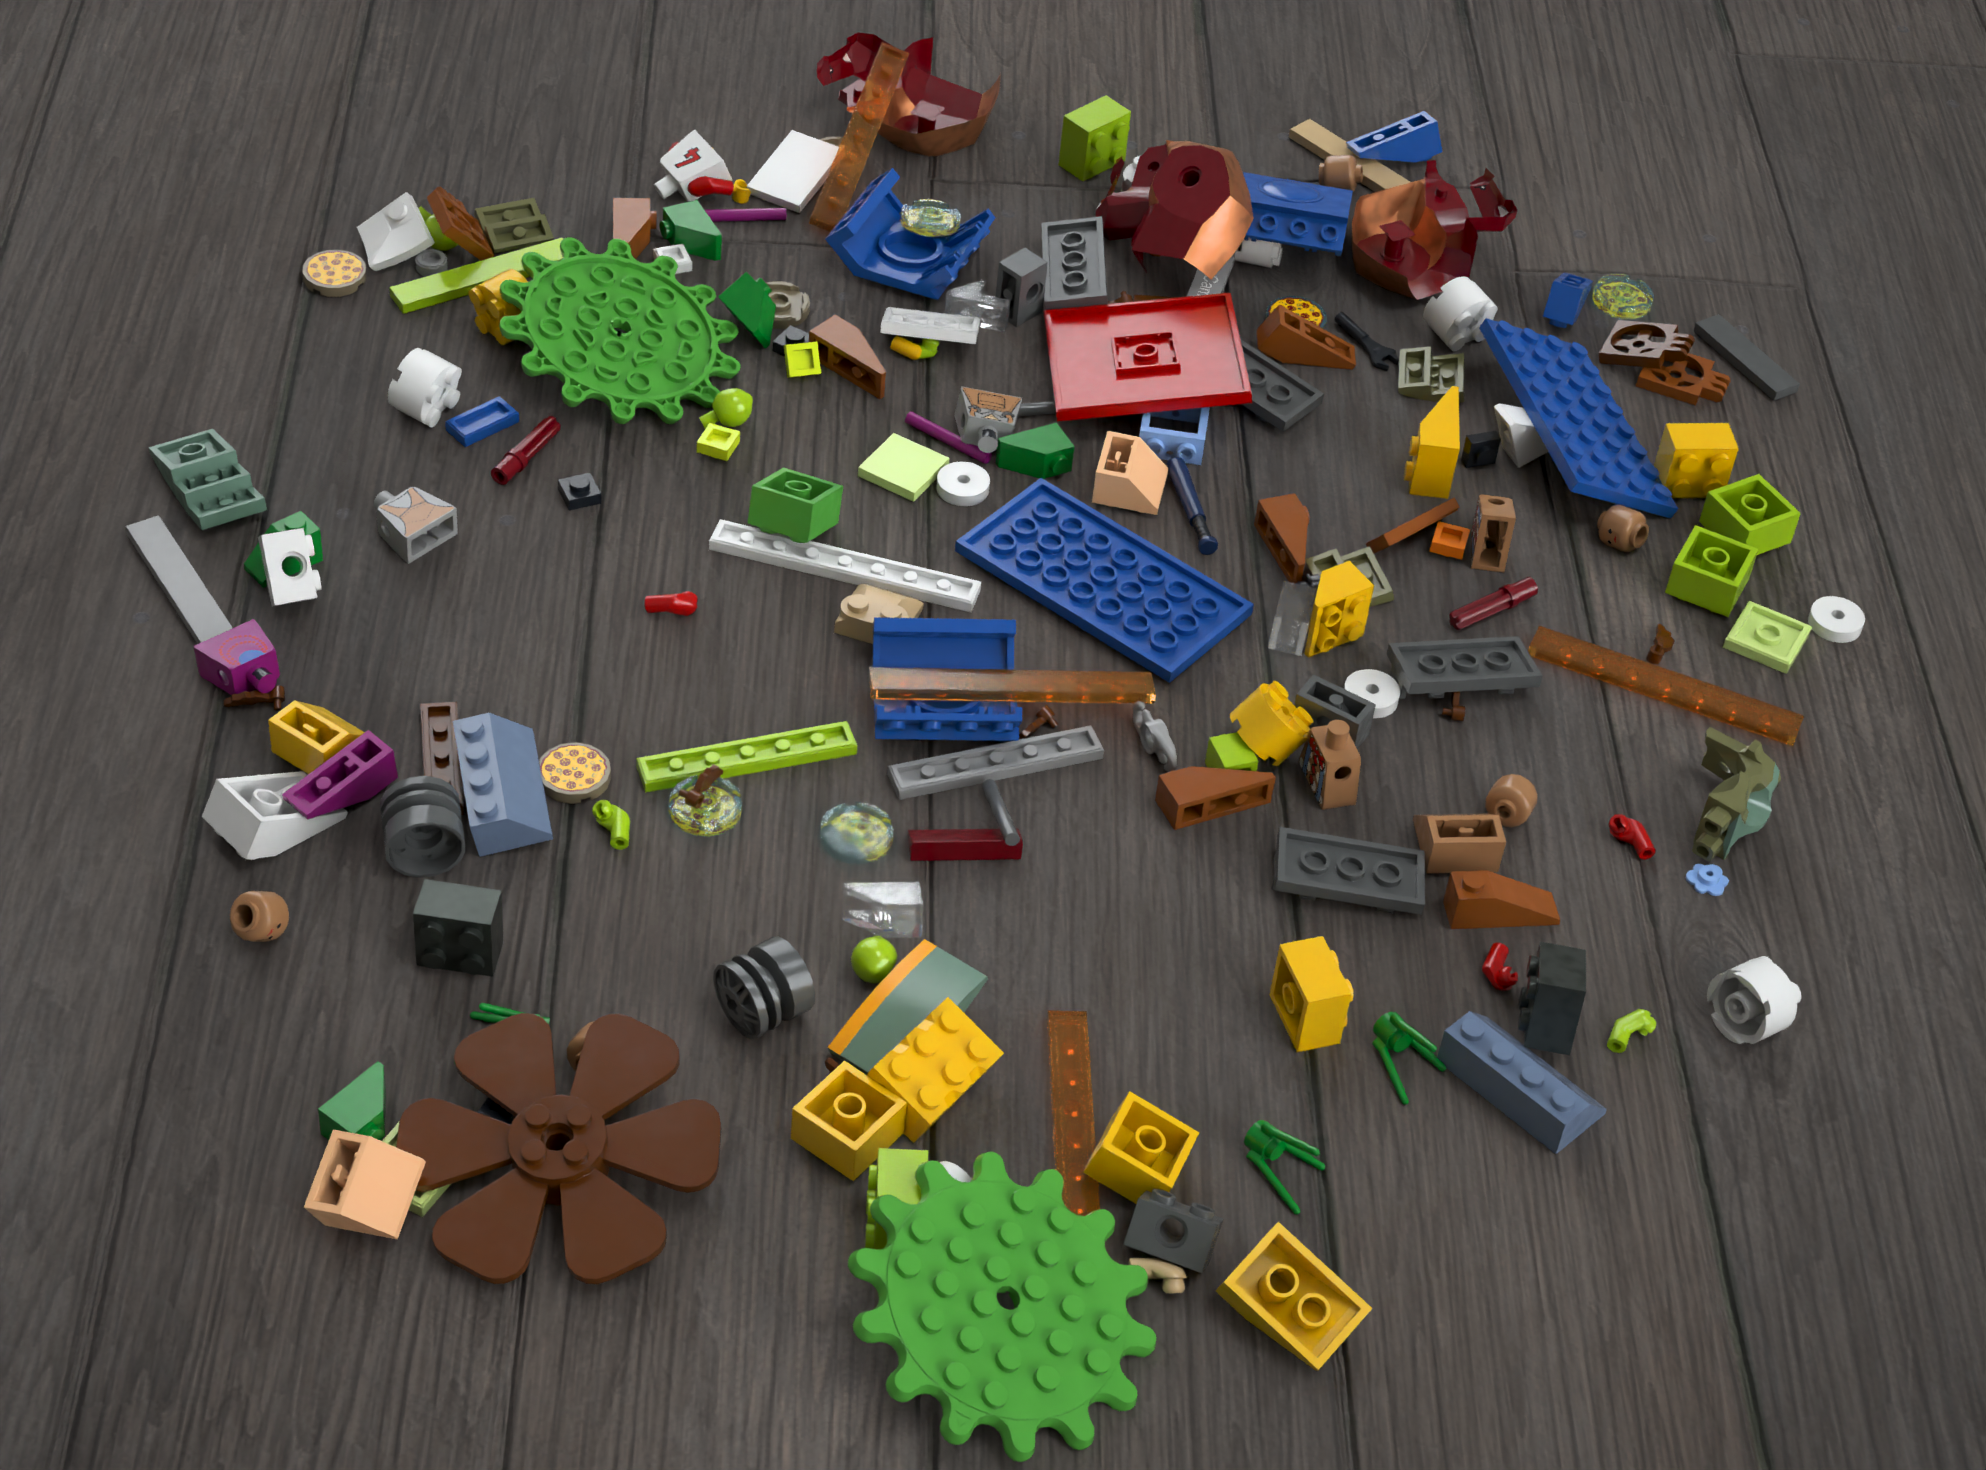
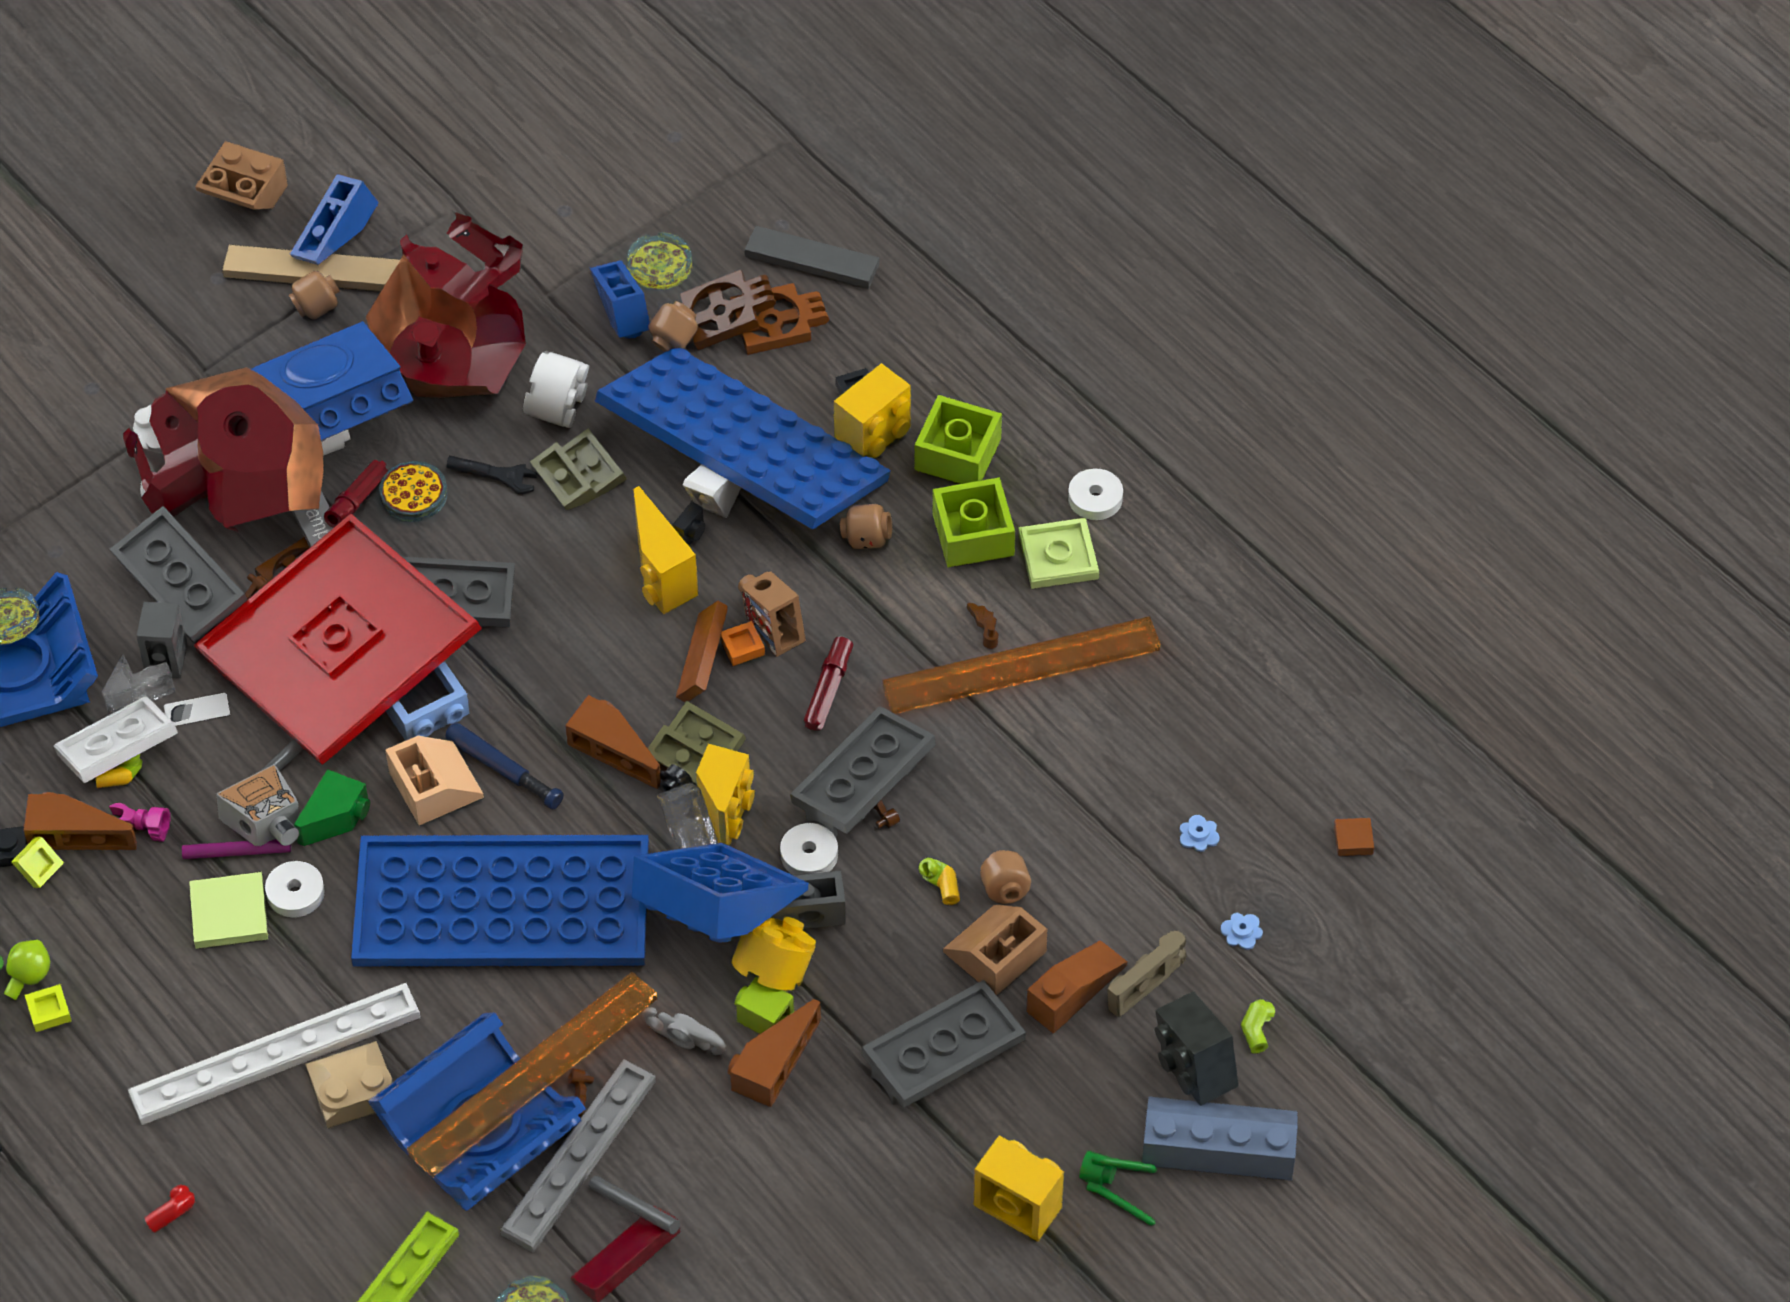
camera: 35 degrees left, 10 degrees up
(795, 505) = (189, 1029): bright green brick -> none
(908, 386) = (156, 820): none -> dark pink piece
(1008, 349) = (197, 709): none -> white sticker
(1094, 138) = (71, 415): lime brick -> none
(1250, 291) = (350, 499): none -> dark red axle
(1260, 651) = (713, 889): none -> blue slope
(1302, 342) = (444, 517): dark orange slope -> none
(1331, 764) = (848, 953): medium nougat torso -> none
(1359, 86) = (244, 177): none -> medium nougat slope
(1460, 772) = (942, 877): none -> arm
(1495, 971) = (1127, 1052): red arm -> none
(1580, 932) = (1147, 973): none -> dark tan hinge
(1590, 329) = (673, 326): none -> medium nougat head
(1633, 833) = (1115, 834): red arm -> none
(1681, 963) = (1242, 930): none -> light blue plant
(1739, 802) = (1179, 749): olive hips -> none
(1753, 1001) = (1330, 932): white brick -> none
(1842, 961) = (1354, 836): none -> dark orange tile

